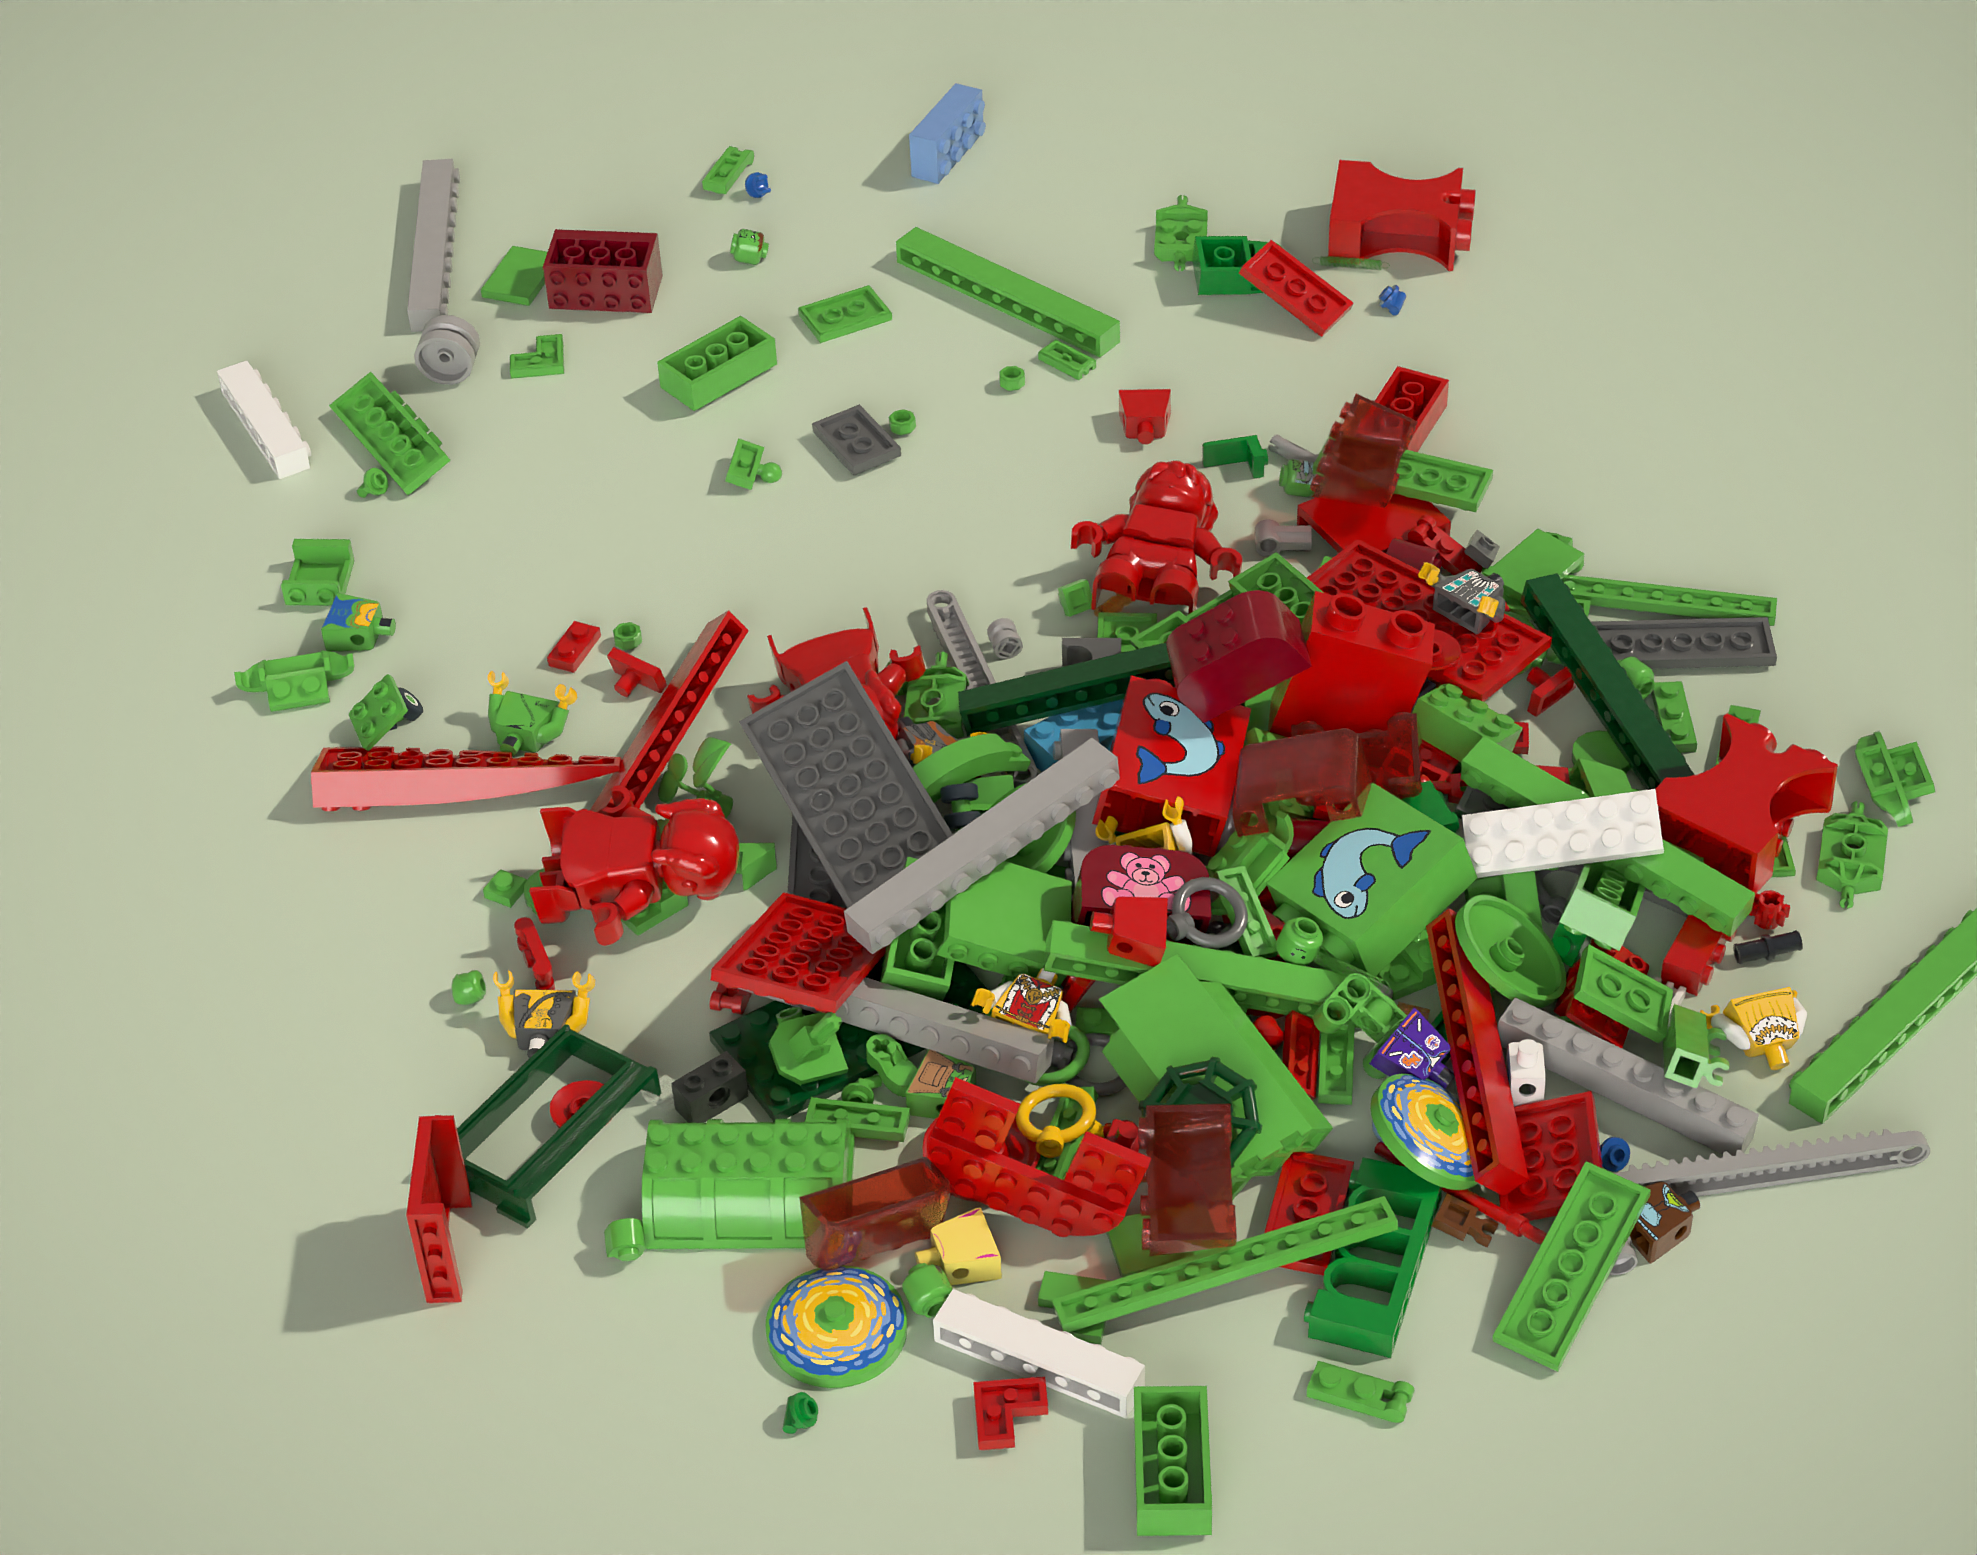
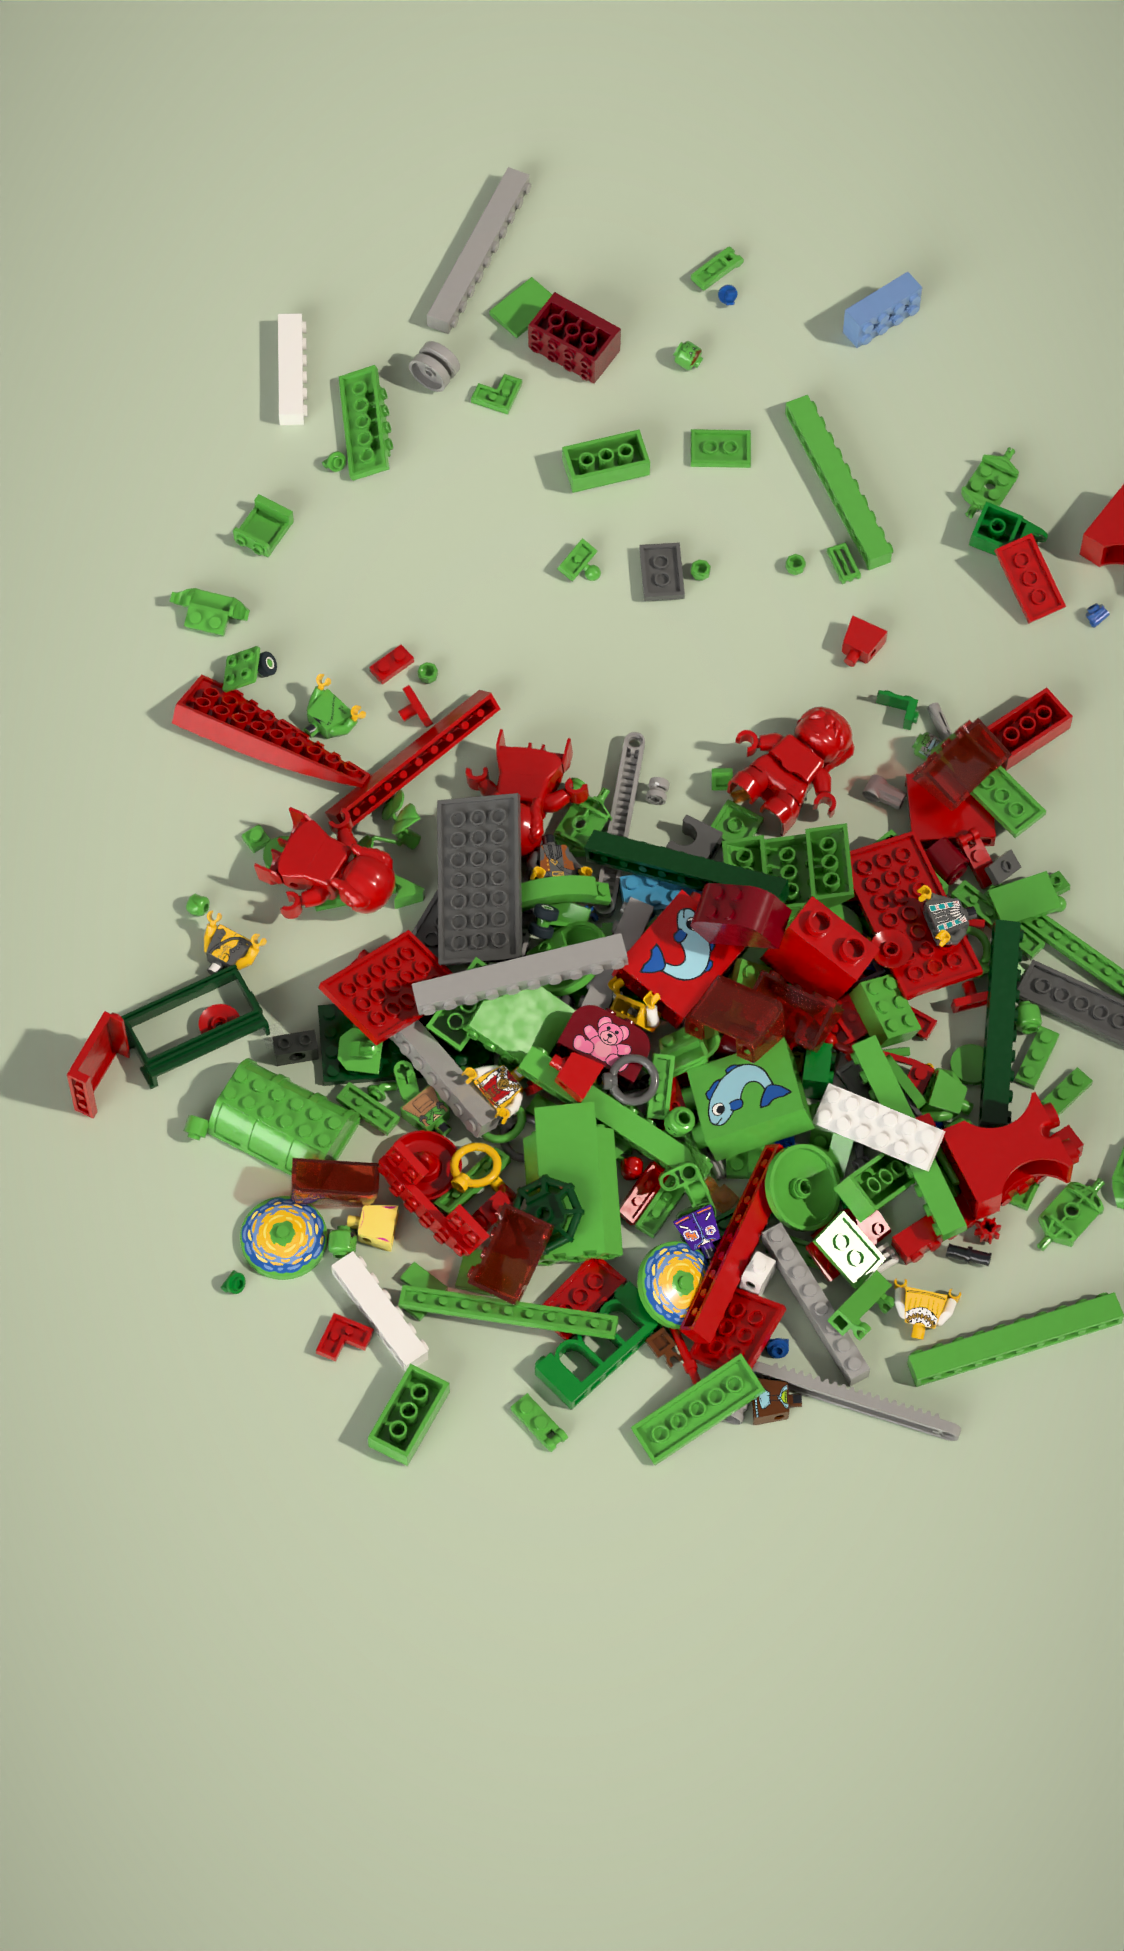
camera: 25 degrees right, 20 degrees up
(355, 624) = (265, 582): bright green torso -> none
(534, 953) = (246, 901): red plate -> none
(1349, 260) = (1091, 560): bright green piece -> none

